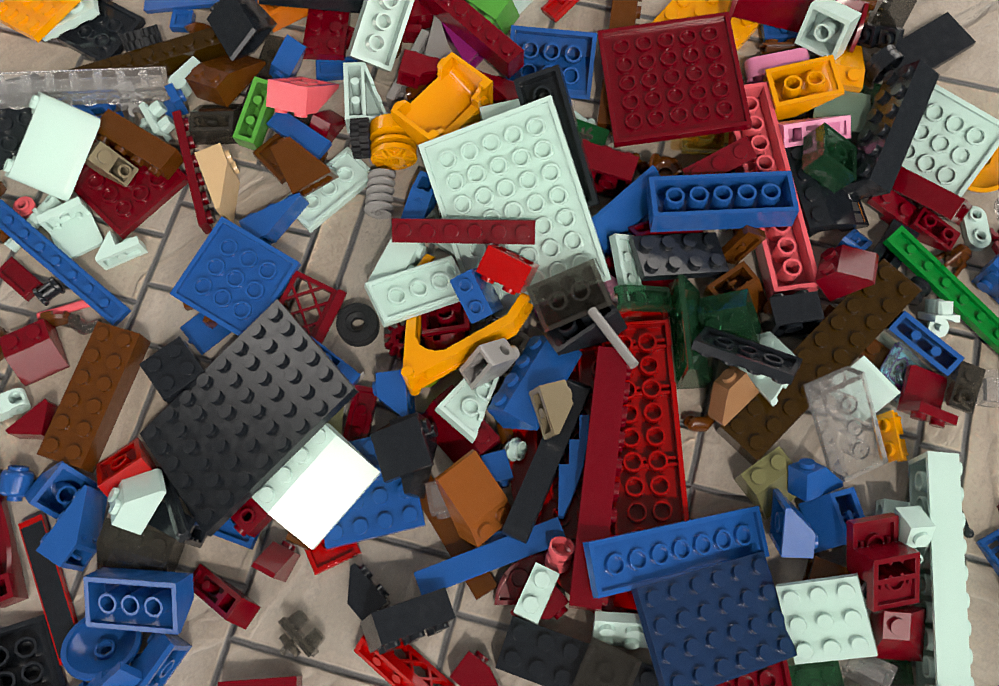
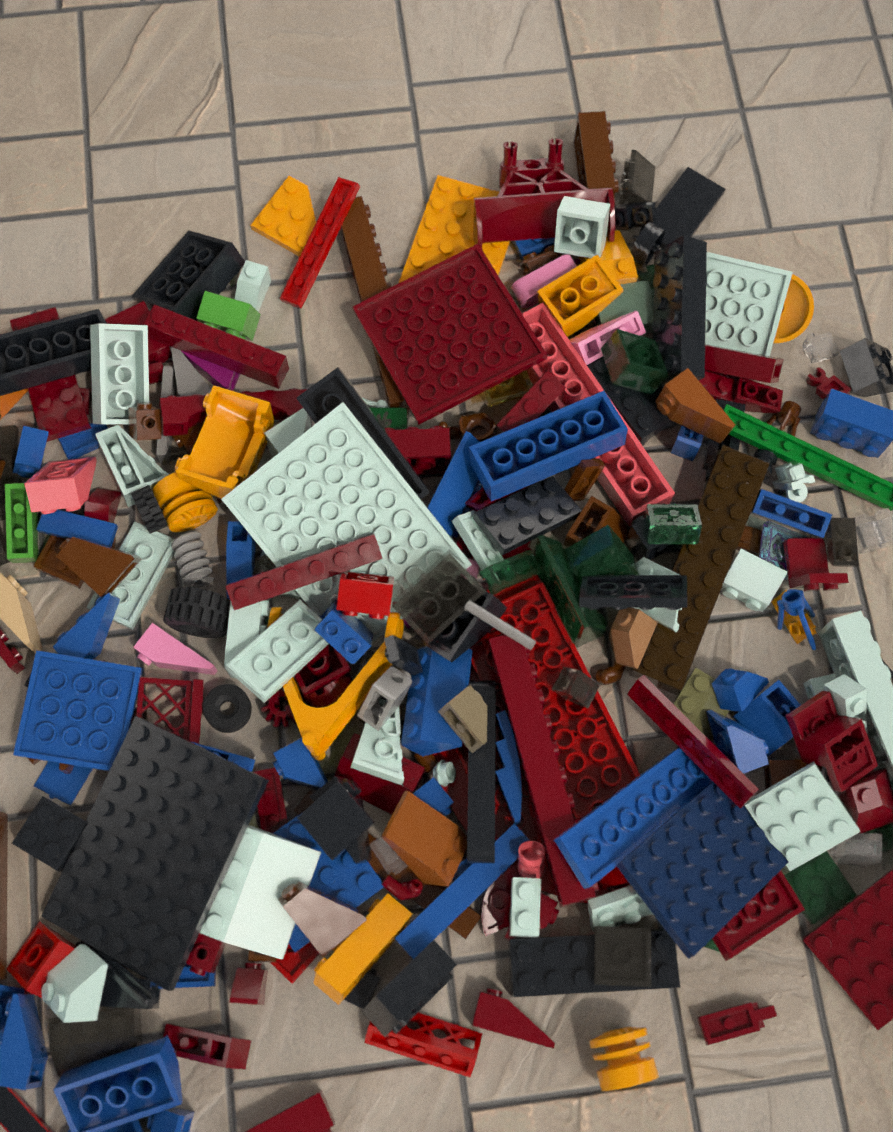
camera: 30 degrees left, 0 degrees up
(307, 643) = (316, 1055): clear smoke hips -> none
(328, 261) = (169, 653): none -> bright pink slope
(357, 526) = (320, 916): none -> slope
(363, 234) = (197, 612): none -> black tyre
(382, 569) = (361, 949): none -> light orange brick
(386, 66) = (144, 422): none -> reddish brown brick
(440, 535) = (403, 890): none -> dark red arm
(518, 332) = (402, 655): none -> black plate
(568, 48) = (318, 348): blue slope -> none
(661, 420) = (575, 687): none -> clear smoke brick
(749, 511) = (692, 741): none -> dark red plate
(808, 310) = (673, 524): none -> clear green bracket
(846, 271) = (692, 470): dark red slope -> none
(846, 423) = (749, 621): clear brick -> none
(869, 216) = (693, 407): none -> dark orange slope
(895, 424) = (794, 604): none -> blue plant
(976, 226) = (792, 378): light aqua plate -> none

